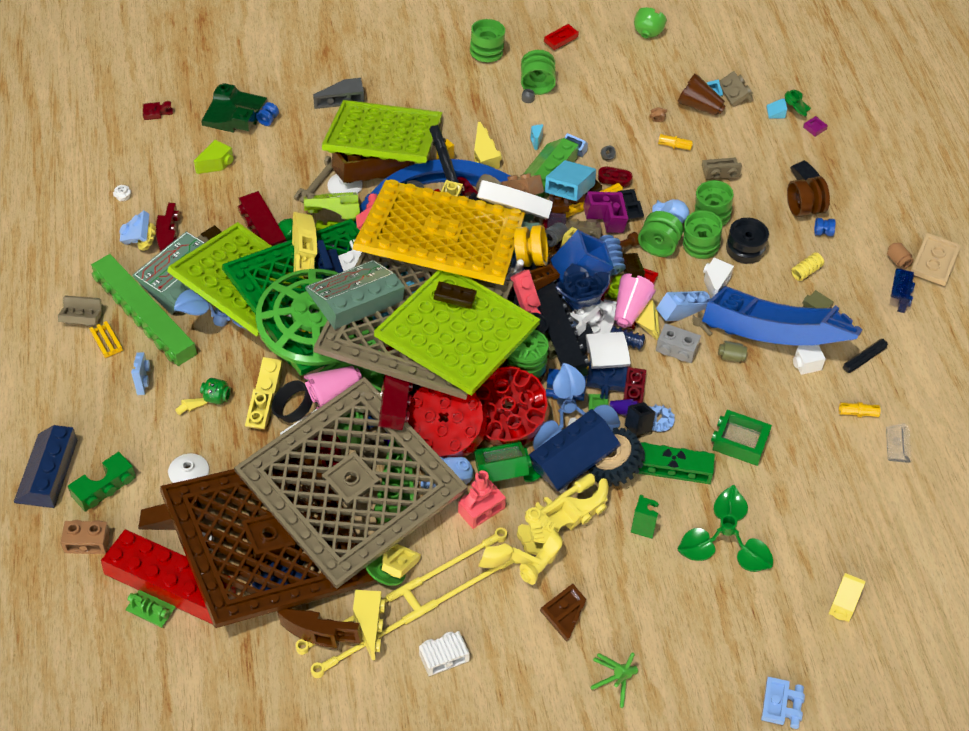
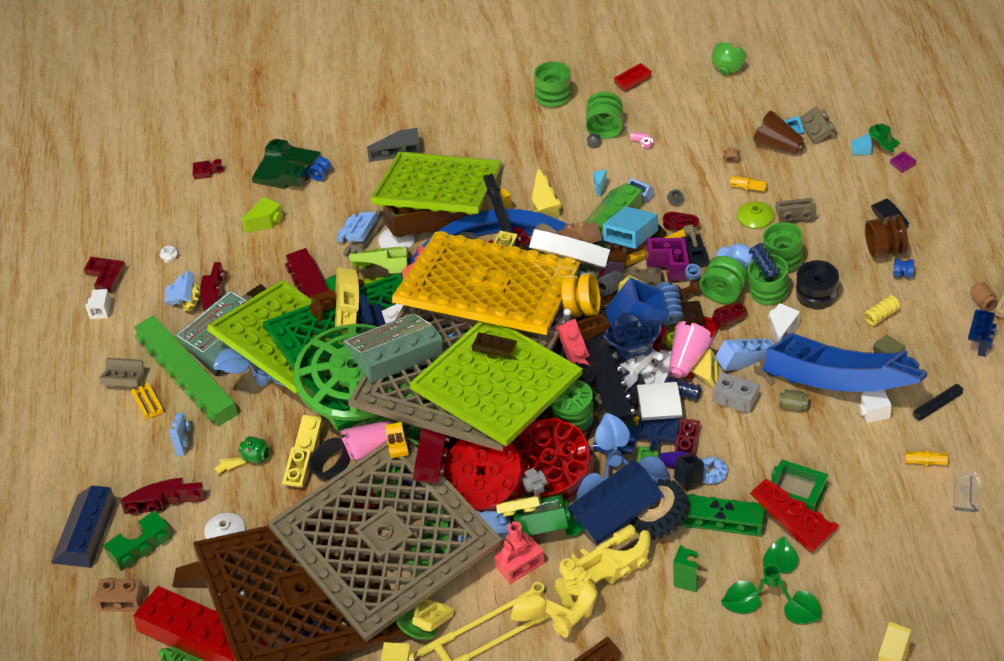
camera: 10 degrees right, 5 degrees down
(54, 241) = (98, 304): none -> white brick
(61, 207) = (107, 270): none -> dark red plate
(118, 436) = (160, 493): none -> dark red slope
(280, 246) = (322, 302): none -> reddish brown bracket
(306, 172) = (357, 227): none -> light blue plate
(361, 386) = (396, 440): none -> yellow leg
(490, 451) = (527, 504): none -> light yellow wing
(495, 429) = (534, 481): none -> light grey gear
(575, 96) = (645, 140): none -> bright pink arm
(626, 185) = (690, 230): none -> dark tan hand
(629, 223) = (691, 271): none -> medium blue hinge
(666, 267) = (729, 314): none -> dark red plate
(683, 172) = (755, 215): none -> lime dish
(700, 217) = (764, 261): none -> dark blue piece
(749, 471) = (793, 515): none -> red wing

